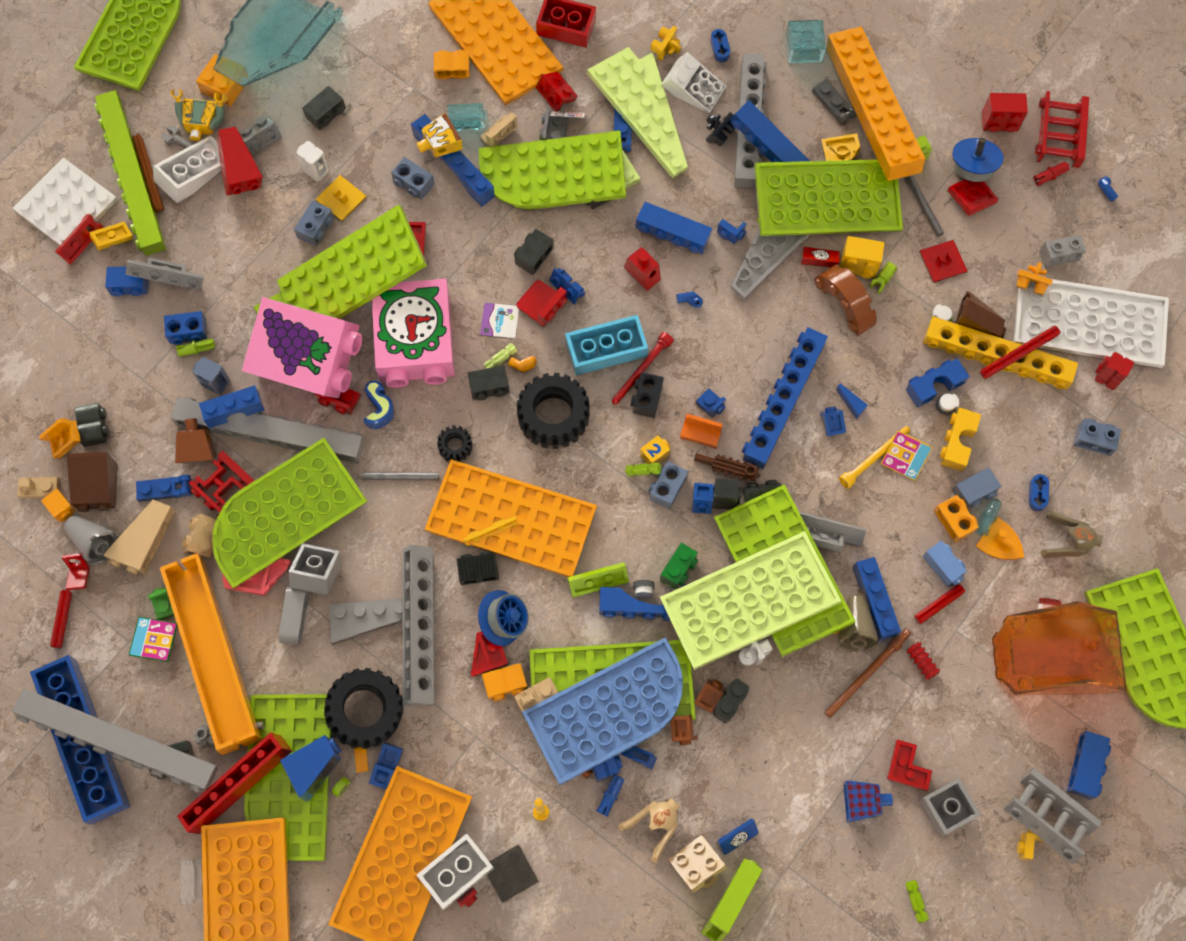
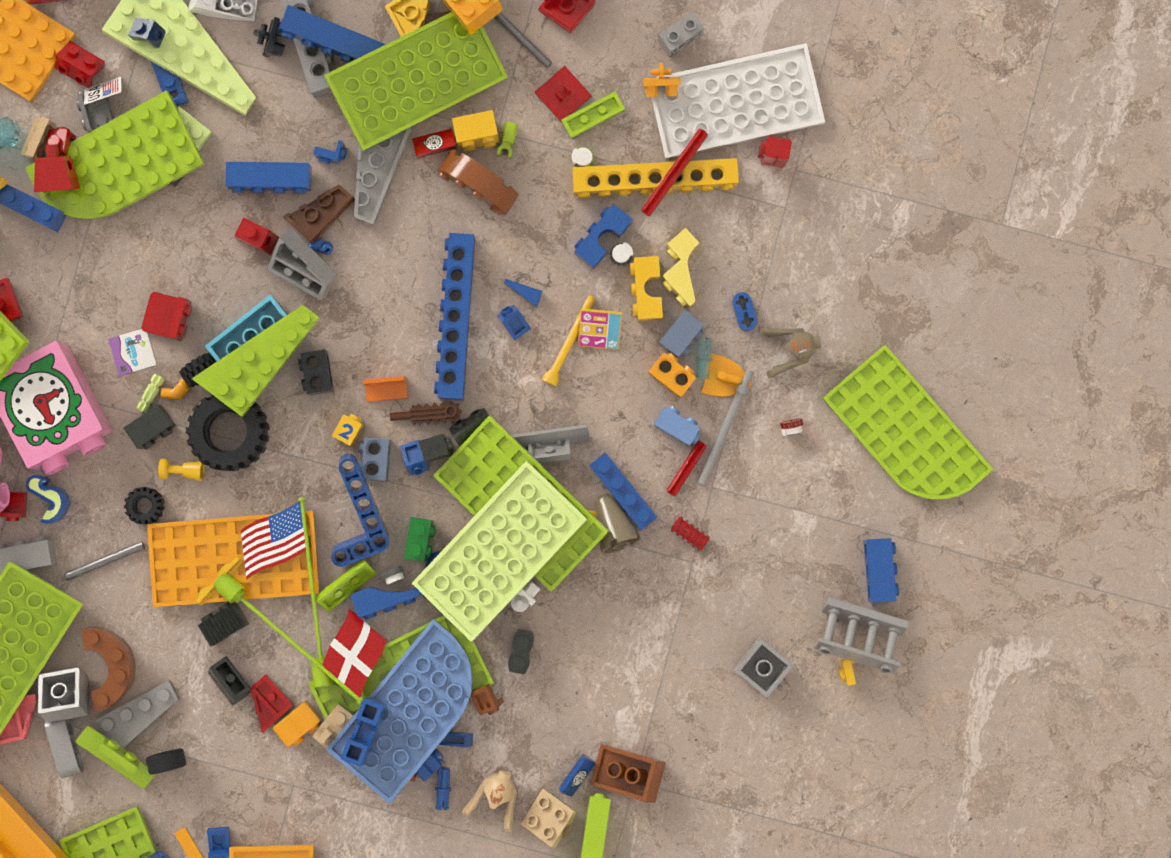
camera: 25 degrees left, 15 degrees up
(332, 638) = (115, 756): none -> lime bracket
(363, 736) = (172, 839): black tyre -> none
(373, 570) = (120, 665): none -> dark orange brick
(376, 662) = (166, 761): none -> black tyre
(412, 615) = (179, 701): light grey brick -> none
(462, 618) = (229, 681): none -> pearl dark grey brick
(502, 617) = (267, 665): blue piece -> none
(503, 155) = (54, 172): none -> red torso
(507, 431) = (190, 470): none -> yellow piece
(515, 137) = (62, 137): none -> red bracket
(533, 251) = (134, 264): pearl dark grey brick -> none
(540, 810) = (383, 832): yellow piece -> none
(551, 352) = (195, 367): none -> black tyre
(554, 517) = (277, 541): none -> flag
(560, 278) = (175, 282): blue hinge -> none
(572, 700) = (367, 724): none -> blue arch
(579, 637) = (350, 654): none -> flag
(595, 364) = (250, 368): none -> lime wing
(624, 82) = (147, 31): none -> bracket
(640, 523) = (364, 513): none -> blue beam
(643, 469) = (333, 458): lime axle -> none
(664, 341) = (312, 305): red piece -> none
(671, 304) = (301, 265): none -> light grey wedge
(701, 274) = (318, 215): none -> reddish brown wing
(710, 695) = (499, 652): dark orange bracket -> none
(711, 403) = (384, 353): blue bracket -> none
(787, 854) = (628, 773): none -> dark orange slope
(864, 800) = (682, 693): blue torso -> none
(893, 645) = (657, 529): dark orange bar -> none
(903, 770) = (709, 649): red plate -> none
(917, 901) = (764, 764): lime axle -> none
(960, 284) = (593, 115): none -> lime plate
(979, 316) = (621, 148): reddish brown slope -> none
(991, 440) = (678, 277): none -> light yellow arch
(1013, 557) = (741, 391): none -> light grey bar
(1060, 651) = (818, 474): clear orange windscreen -> none
(1097, 437) = (782, 228): sand blue brick -> none

